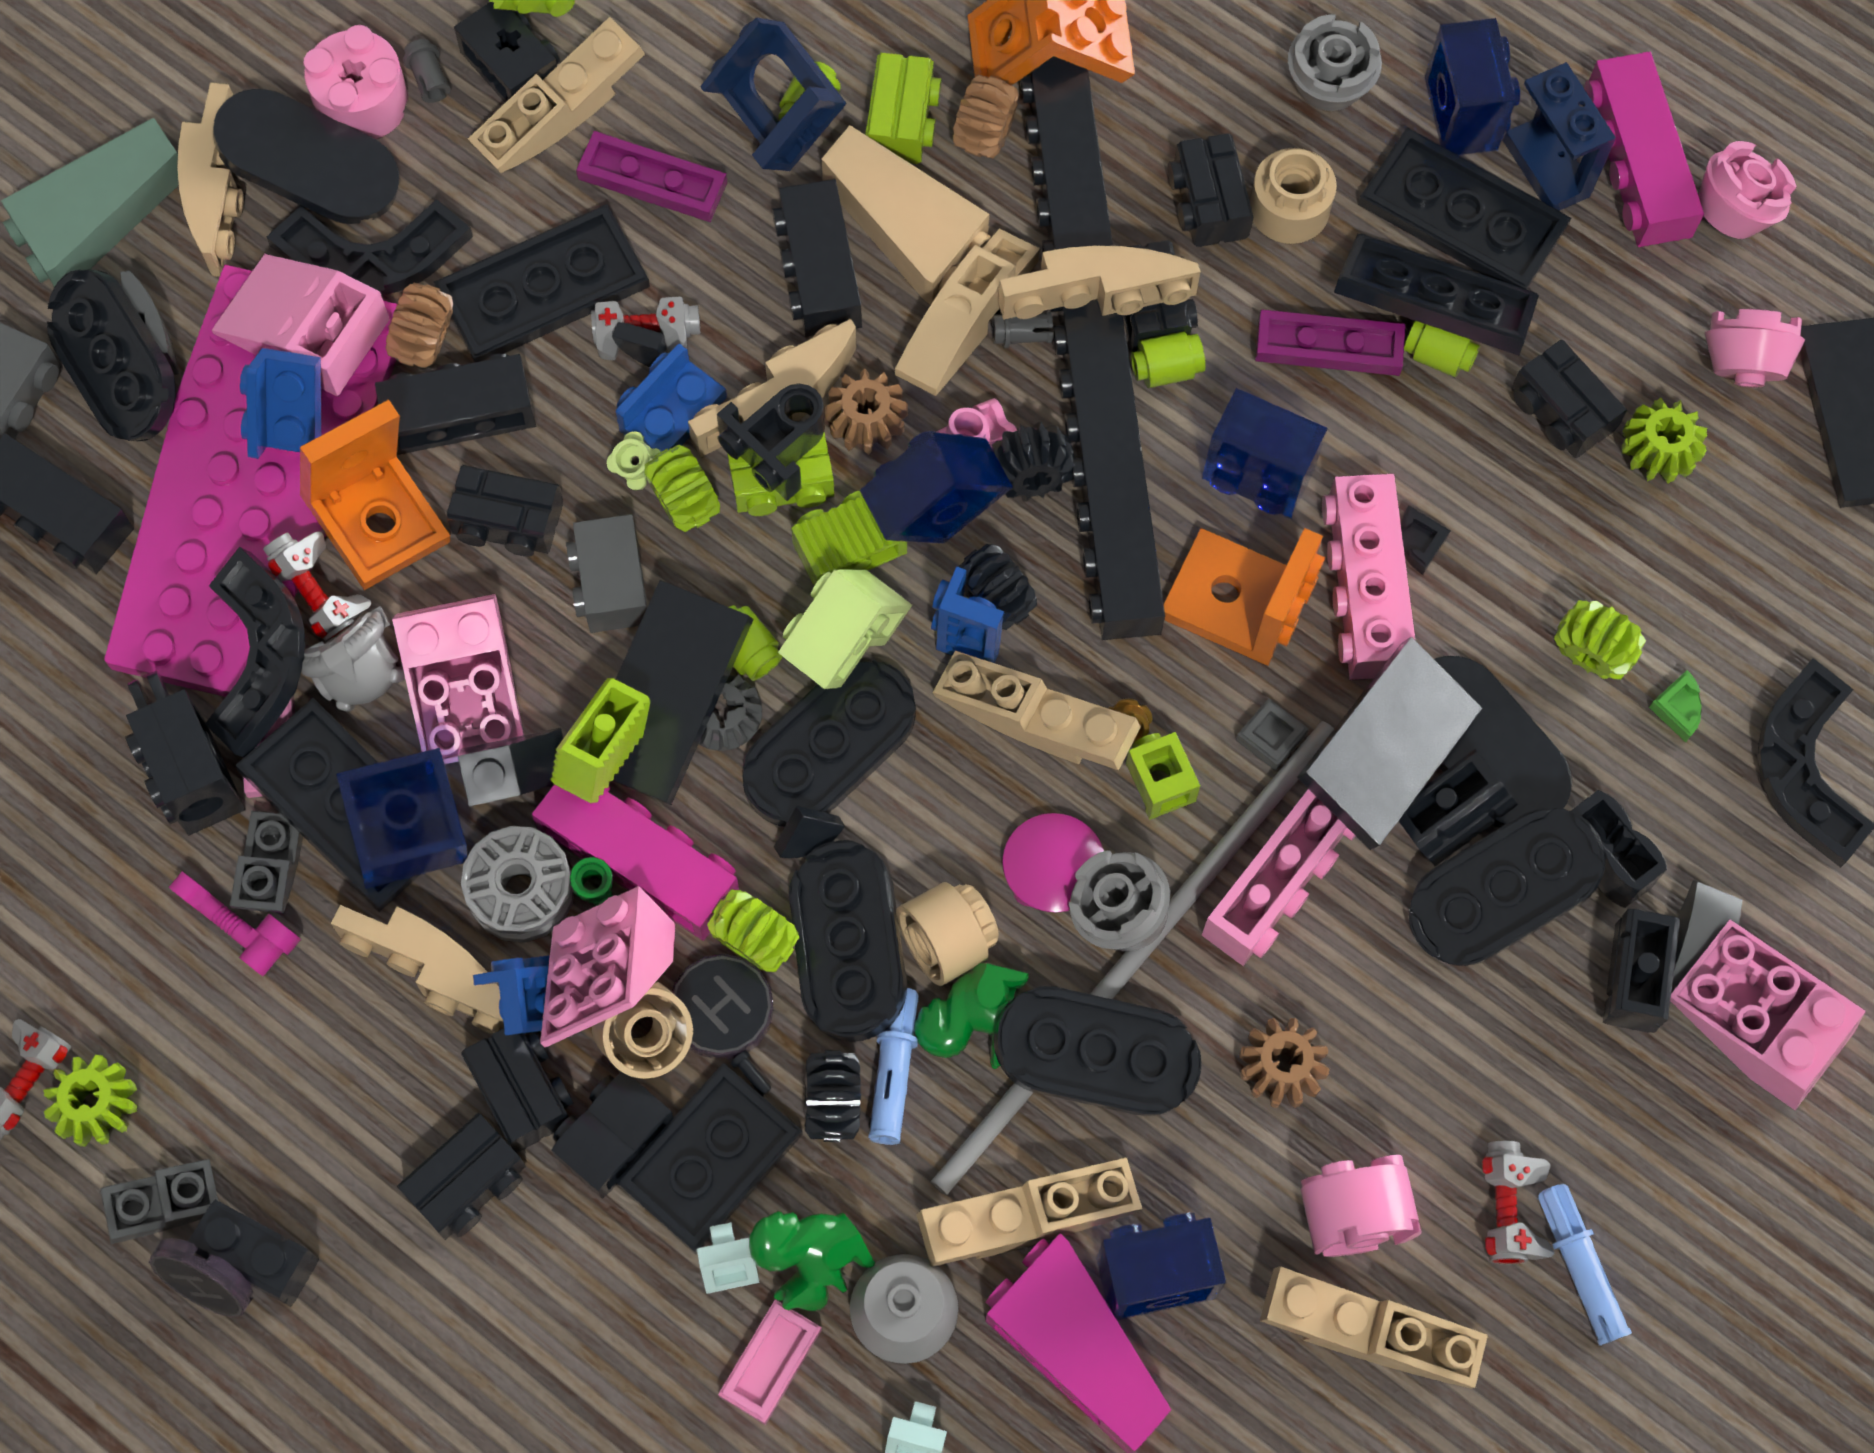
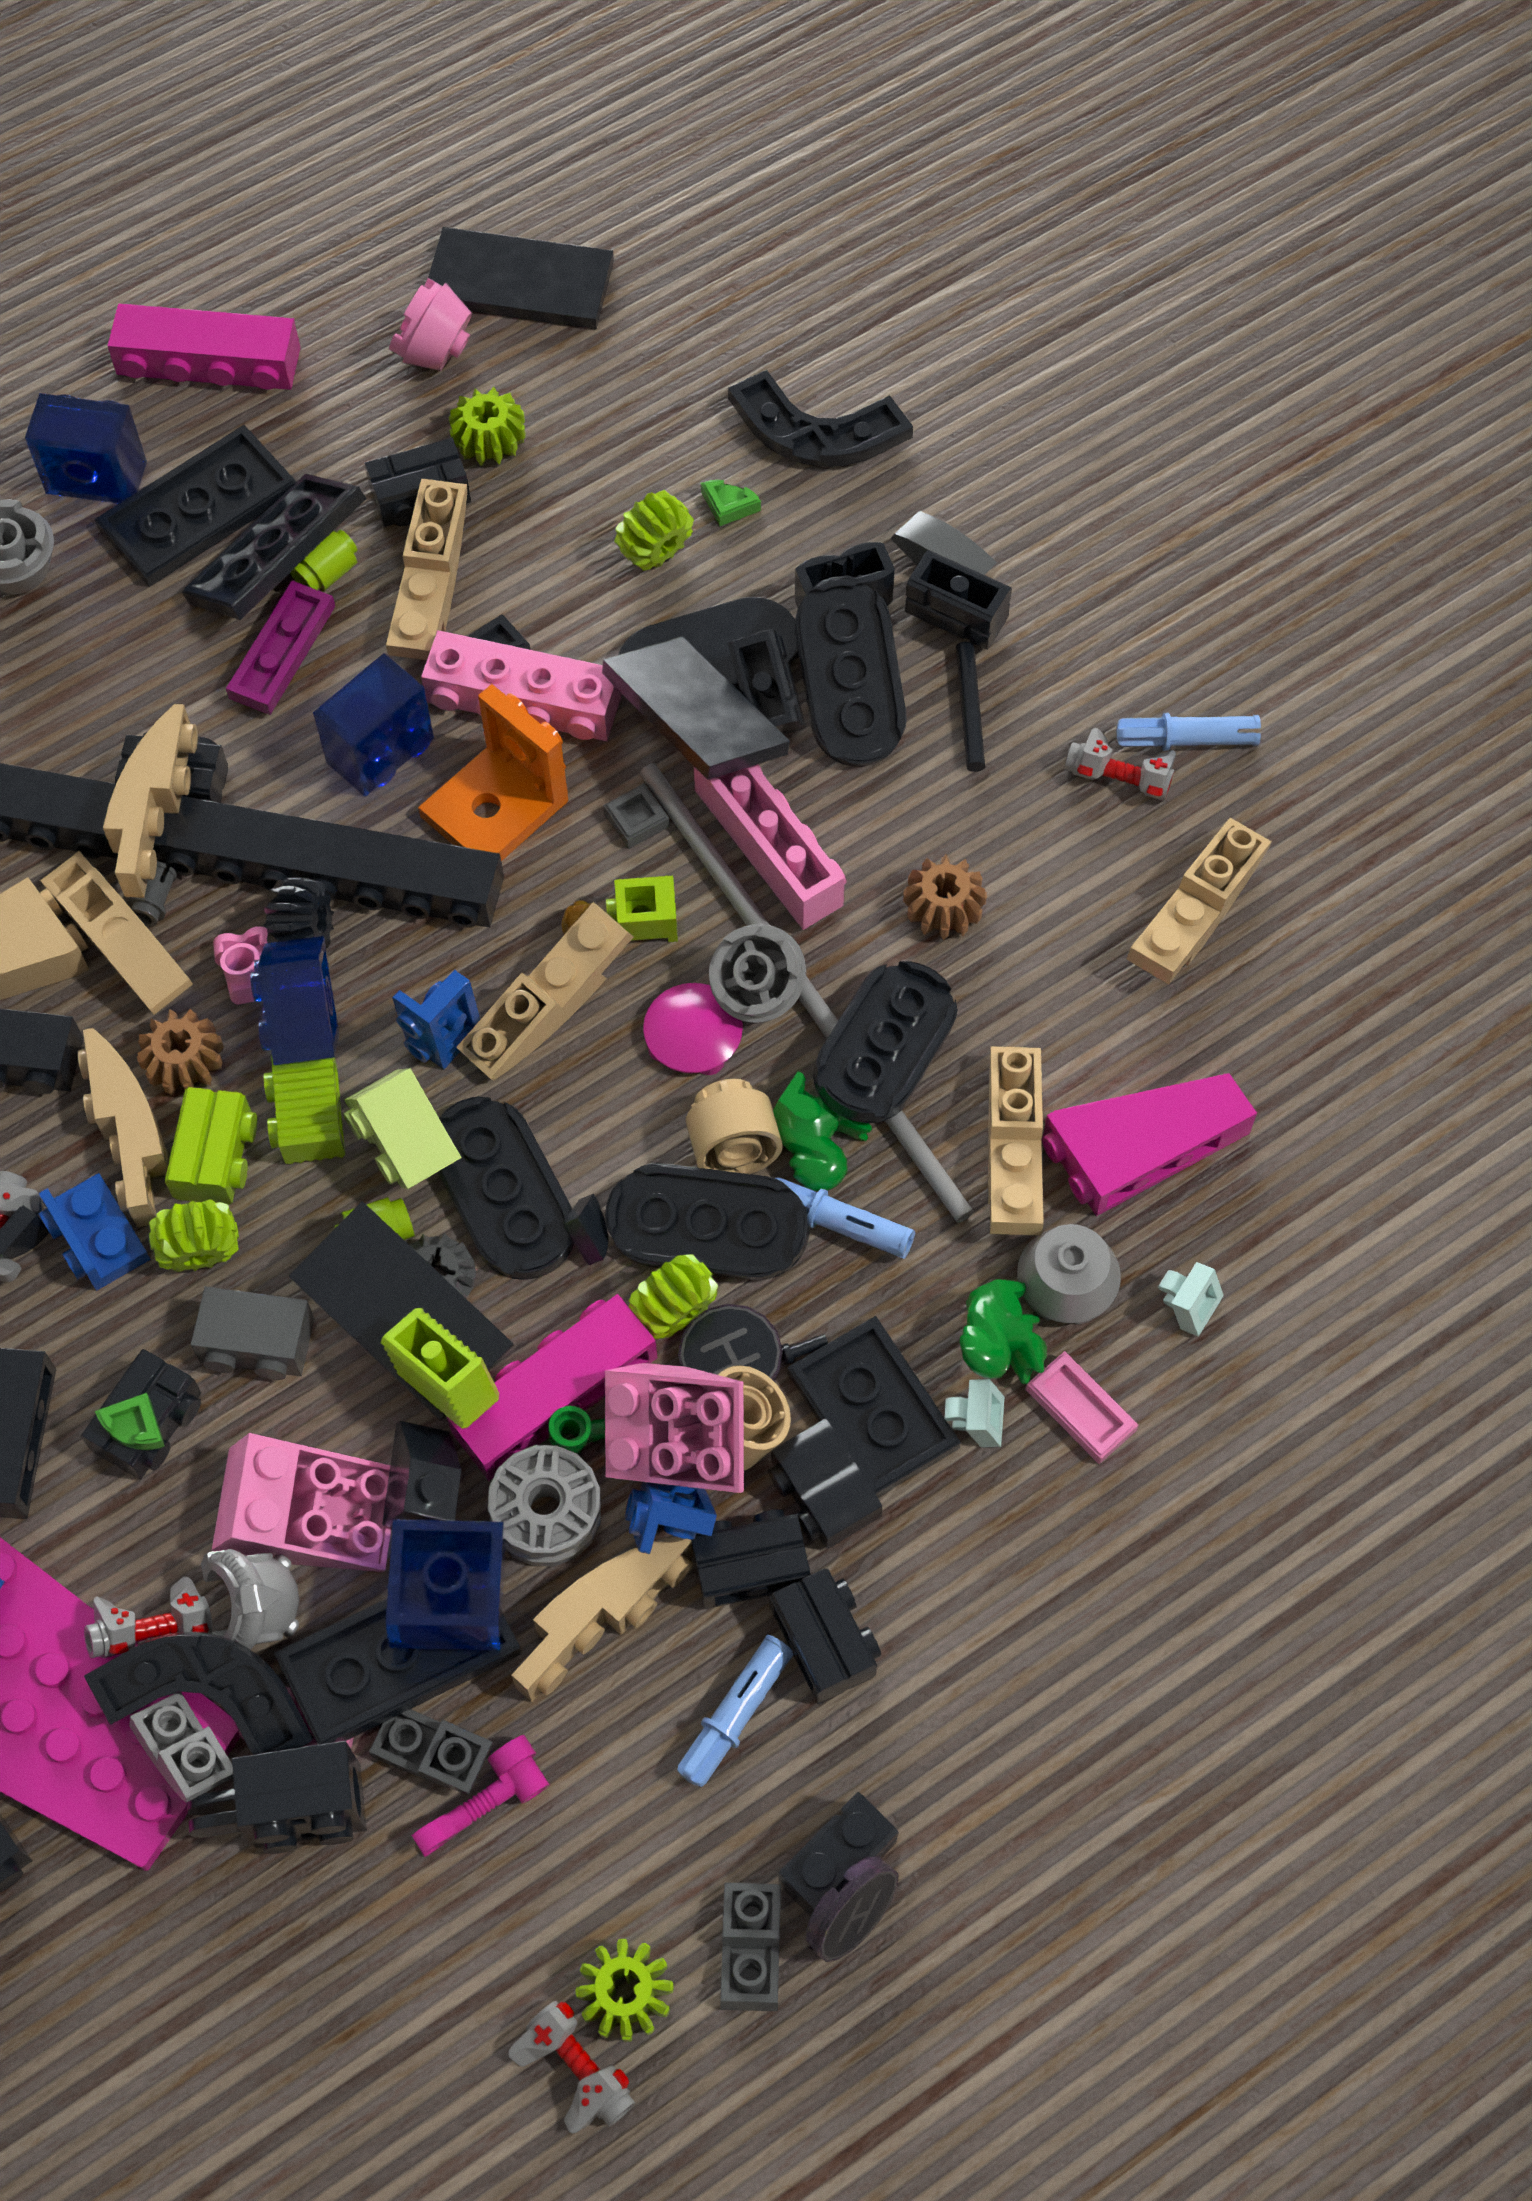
camera: 70 degrees left, 5 degrees down
(200, 650) = (181, 1748): none -> light grey slope
(358, 474) = (60, 1533): orange bracket -> none
(369, 1118) = (734, 1711): none -> light blue axle
(481, 501) = (132, 1423): none -> bright green tile
(621, 459) = (135, 1293): yellowish green plate -> none
(772, 440) = (186, 1125): black pin -> none
(832, 1096) = (856, 1272): black gear -> none
(1000, 581) = (410, 974): black gear -> none
(1160, 1266) = (1101, 1039): clear blue brick -> none
(1168, 359) = (241, 776): lime brick -> none
(1211, 190) = (85, 691): black brick -> none
(1292, 195) = (121, 628): tan piece -> none
(1360, 1207) = (1095, 872): bright pink brick -> none
(1468, 446) = (429, 570): none -> tan slope
(1528, 1025) = (970, 706): none -> black bar
(1558, 136) = (180, 423): dark blue panel -> none
(1745, 191) = (285, 282): bright pink cone -> none
(1766, 1013) = (1026, 522): bright pink slope -> none

